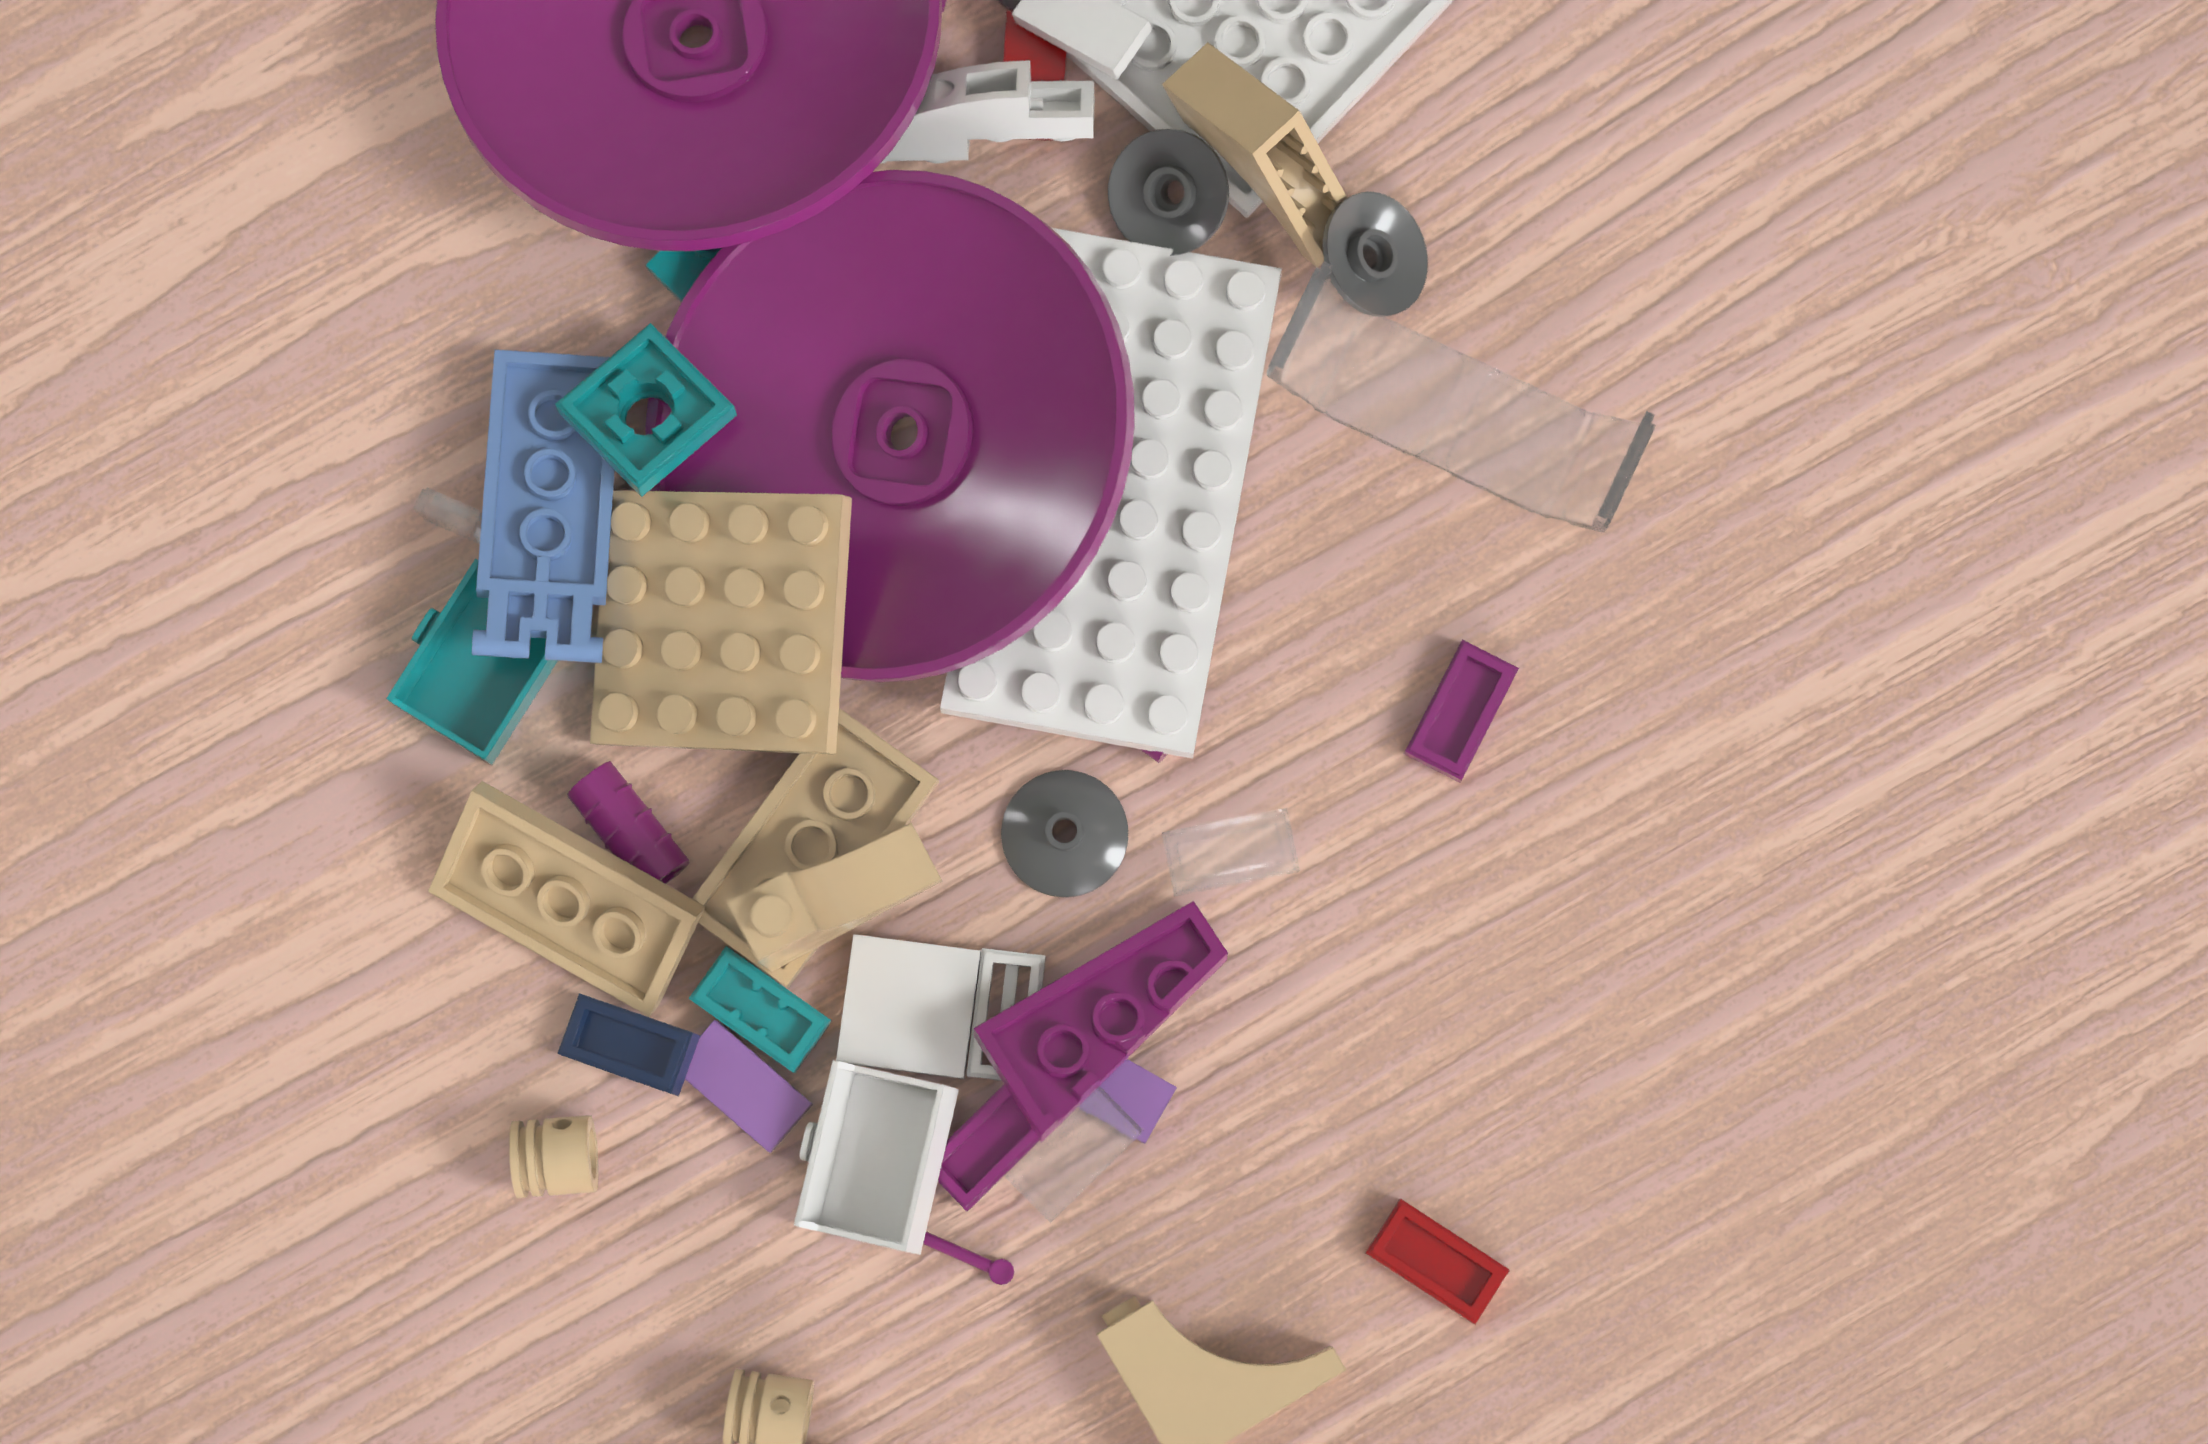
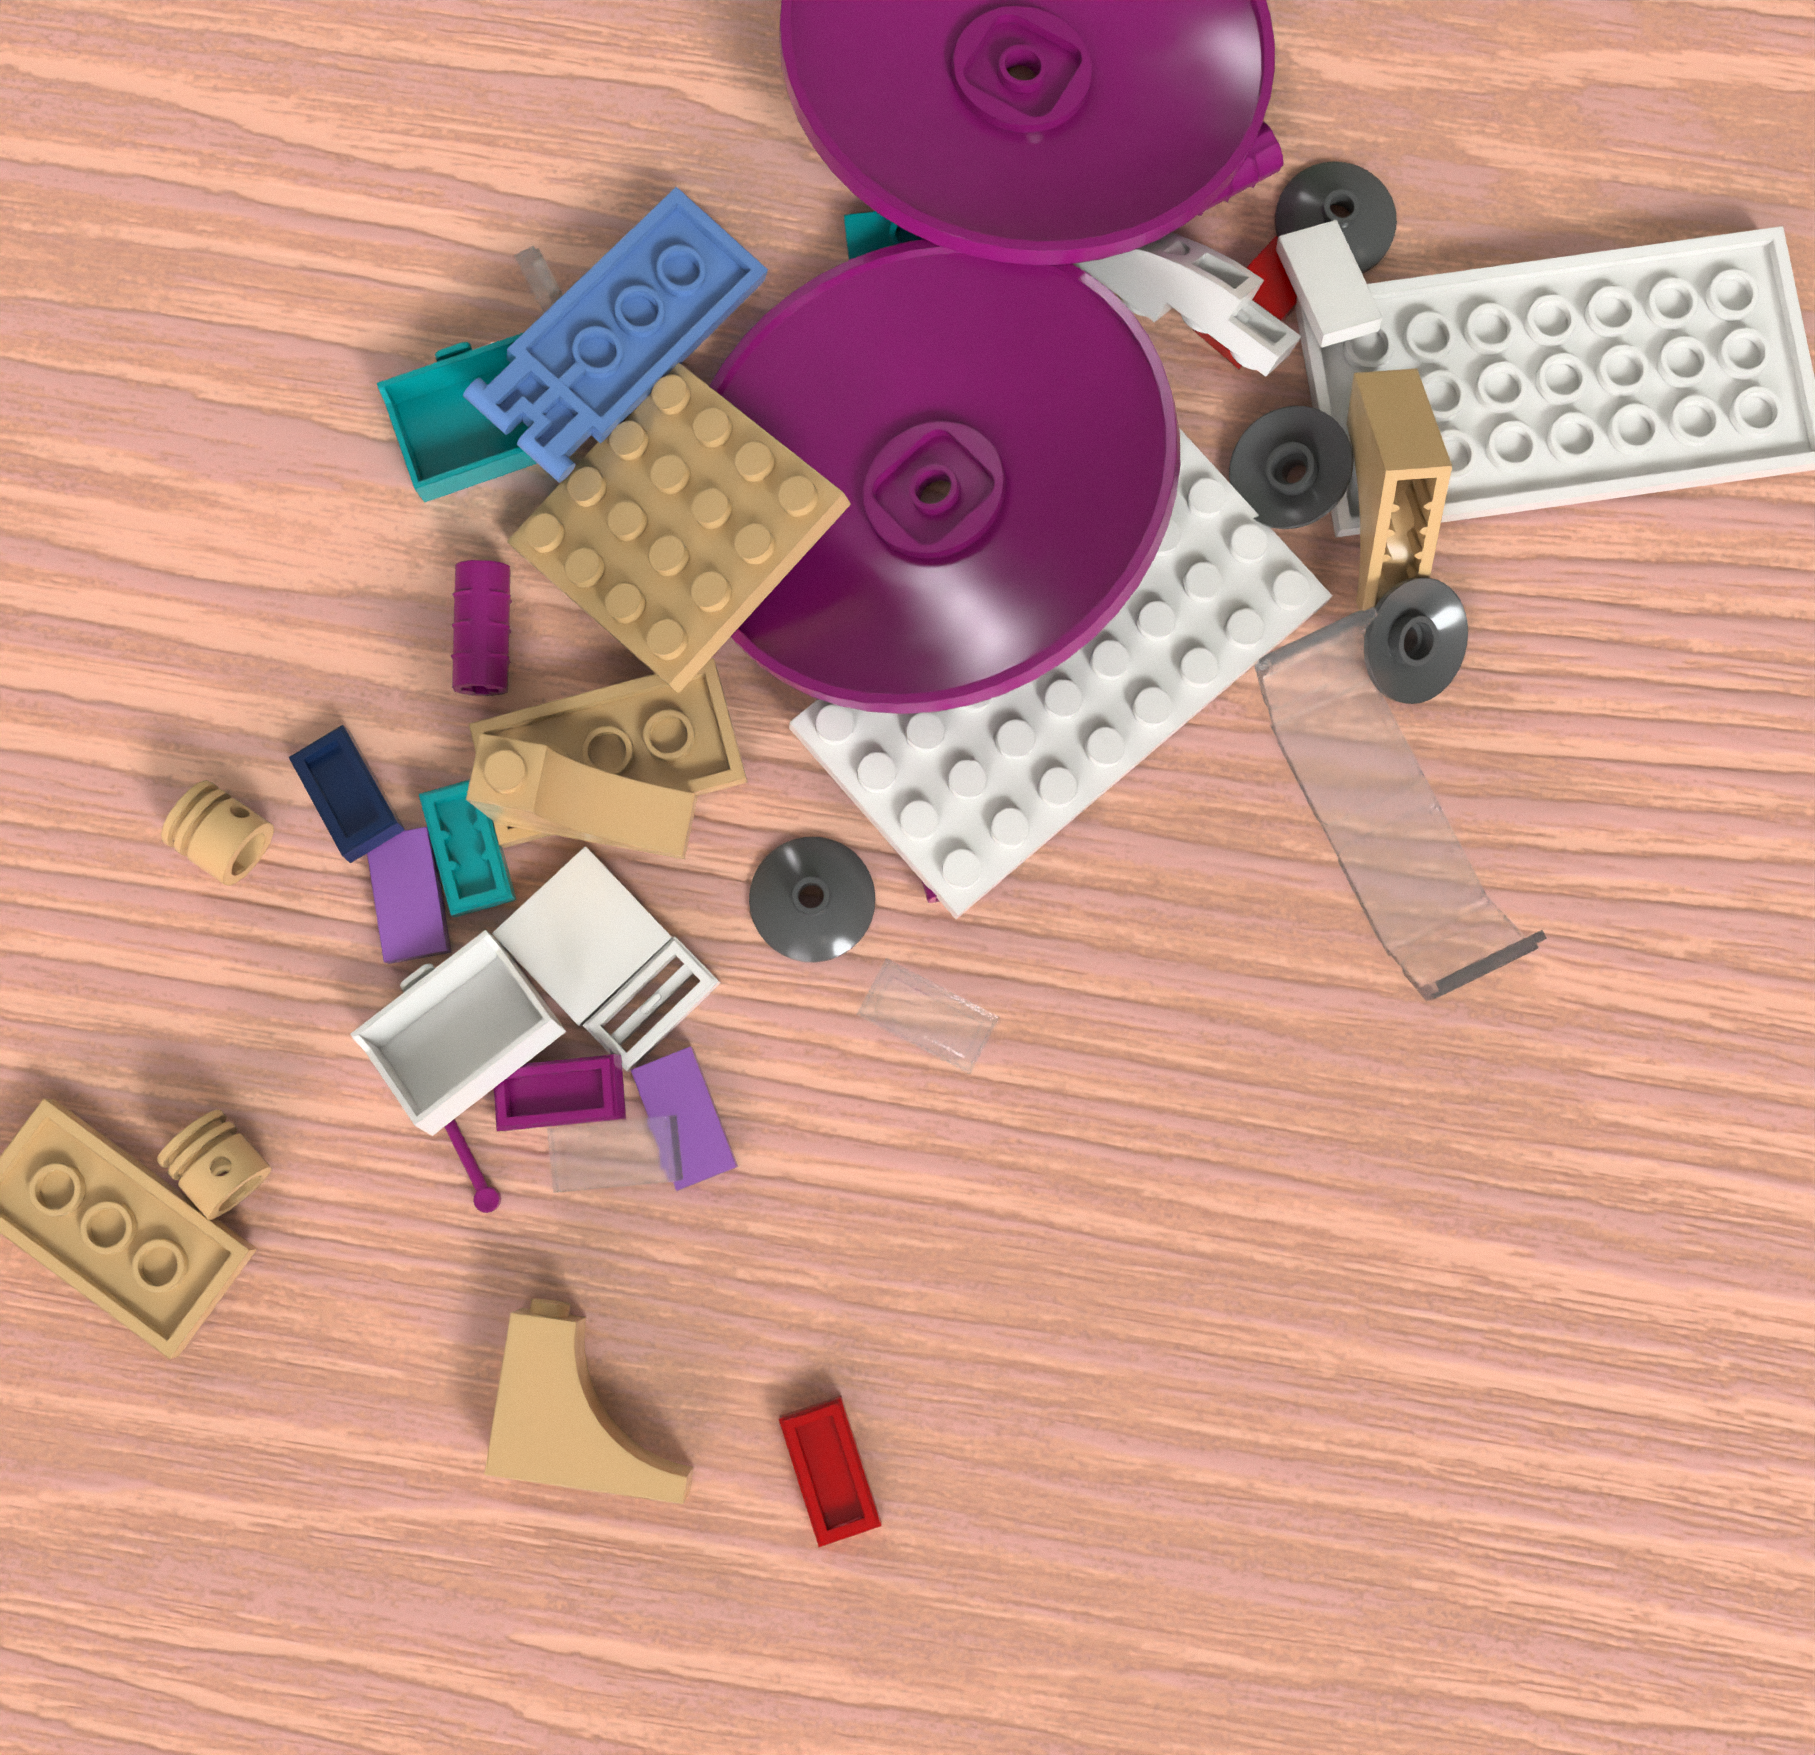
camera: 35 degrees right, 0 degrees up
(565, 898) = (387, 642): tan plate -> none
(637, 371) = (771, 285): teal piece -> none
(1088, 1022) = (708, 1060): magenta wing -> none
(1461, 711) = (1198, 1051): magenta tile -> none

